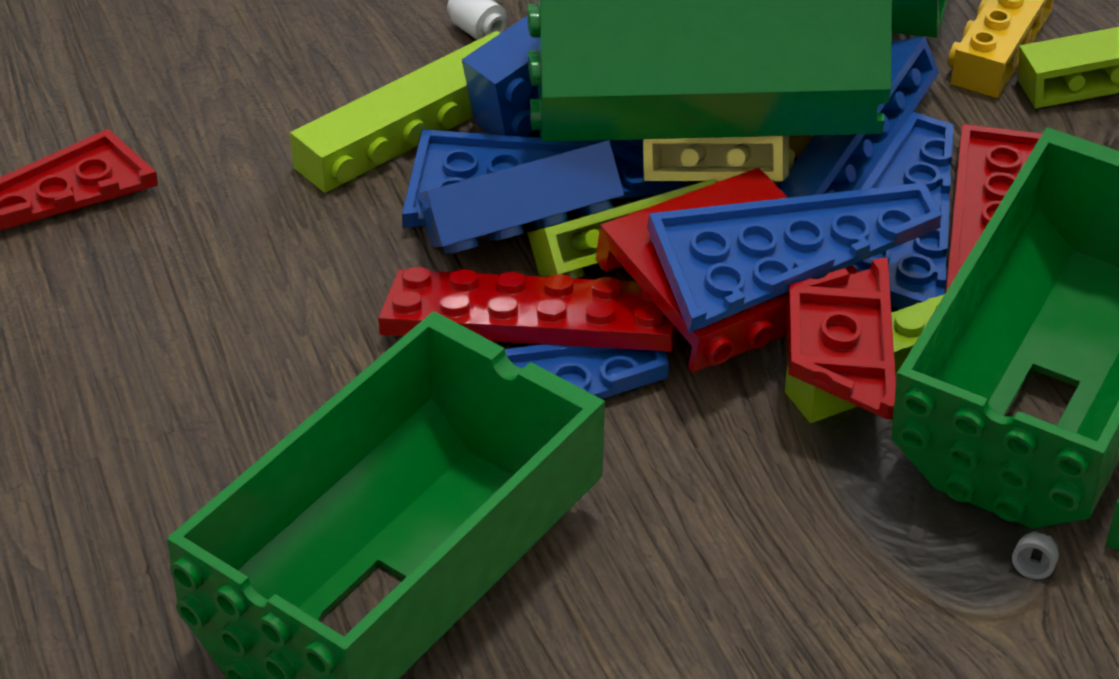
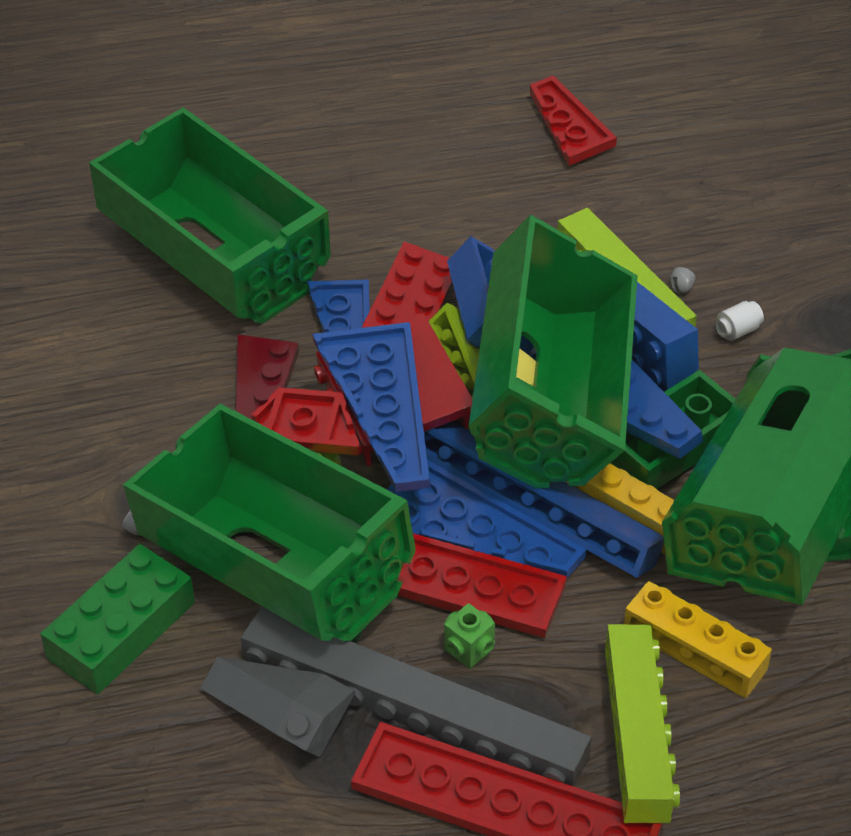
camera: 100 degrees right, 5 degrees up
(403, 64) = (681, 280): none -> light grey hinge
(681, 461) = (261, 369): none -> dark red wing

